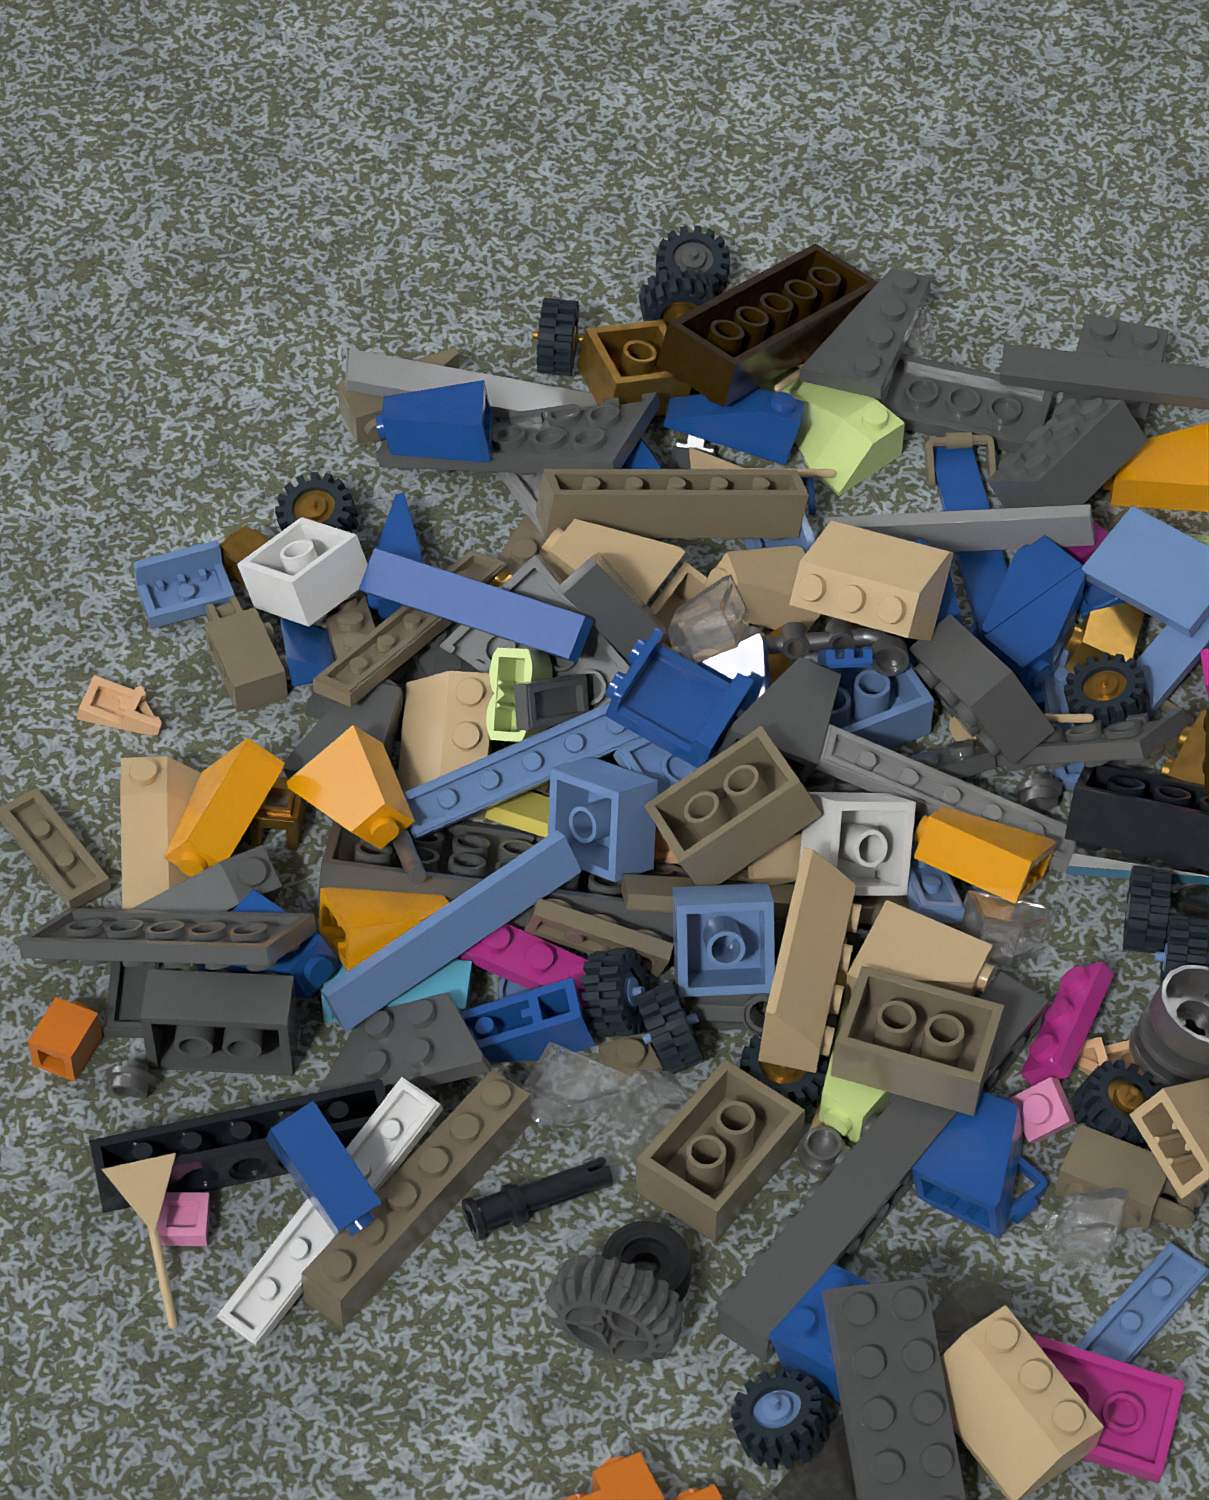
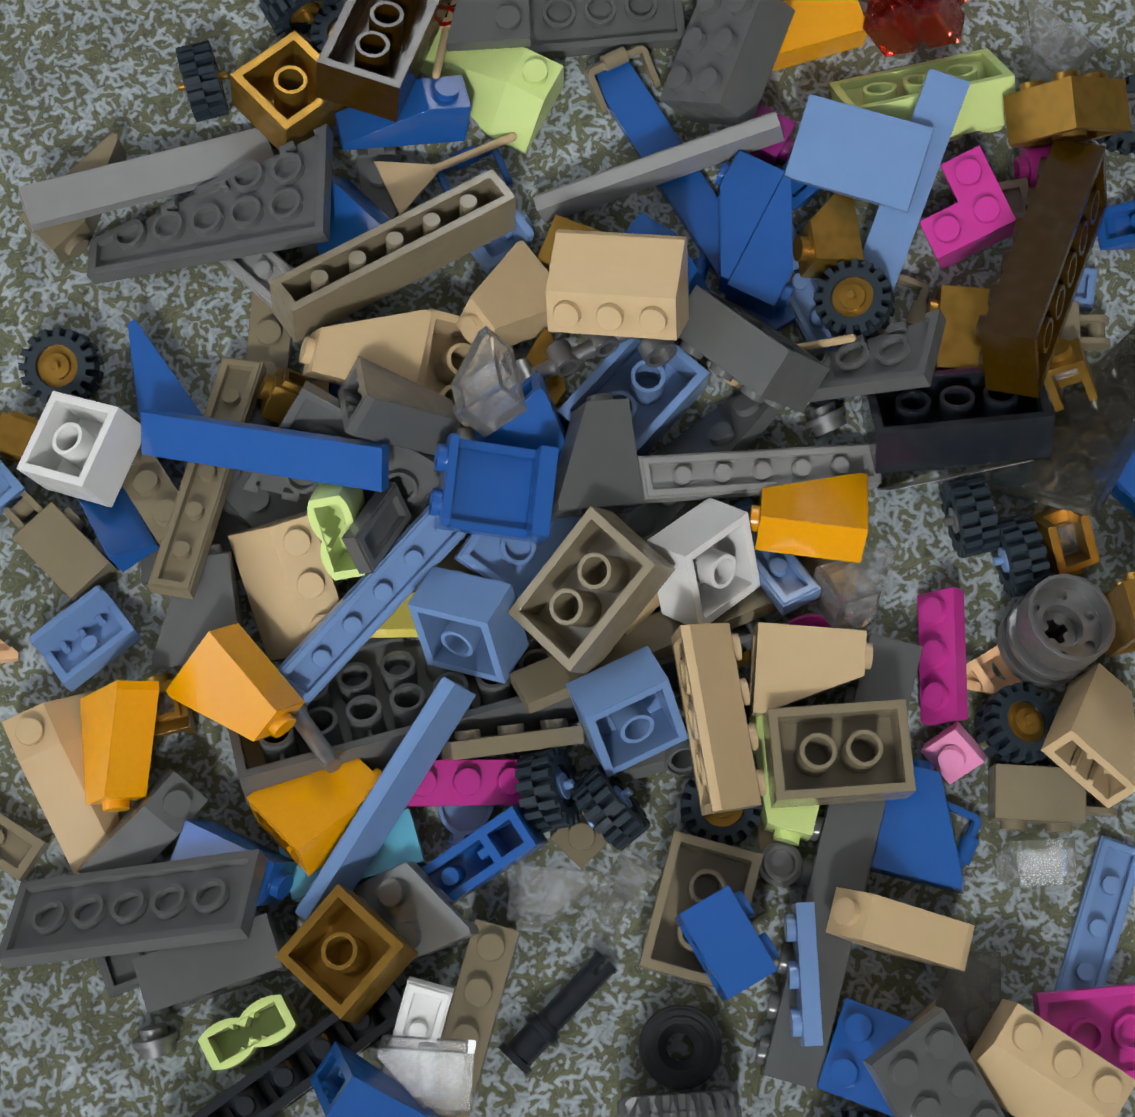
camera: 20 degrees left, 25 degrees up
(65, 1038) = (80, 1023): orange brick -> none
(215, 1088) = (239, 1040): none -> yellowish green brick
(223, 722) = (85, 637): none -> medium blue bracket
(354, 1035) = (346, 954): none -> pearl gold brick
(393, 1159) = (432, 1070): none -> clear slope
(439, 423) = (137, 231): blue slope -> none
(731, 1144) = (727, 942): none -> blue brick
(799, 1223) = (804, 974): none -> medium blue plate
(845, 657) = (618, 365): blue tile -> none
(912, 1220) = (899, 929): none -> tan slope

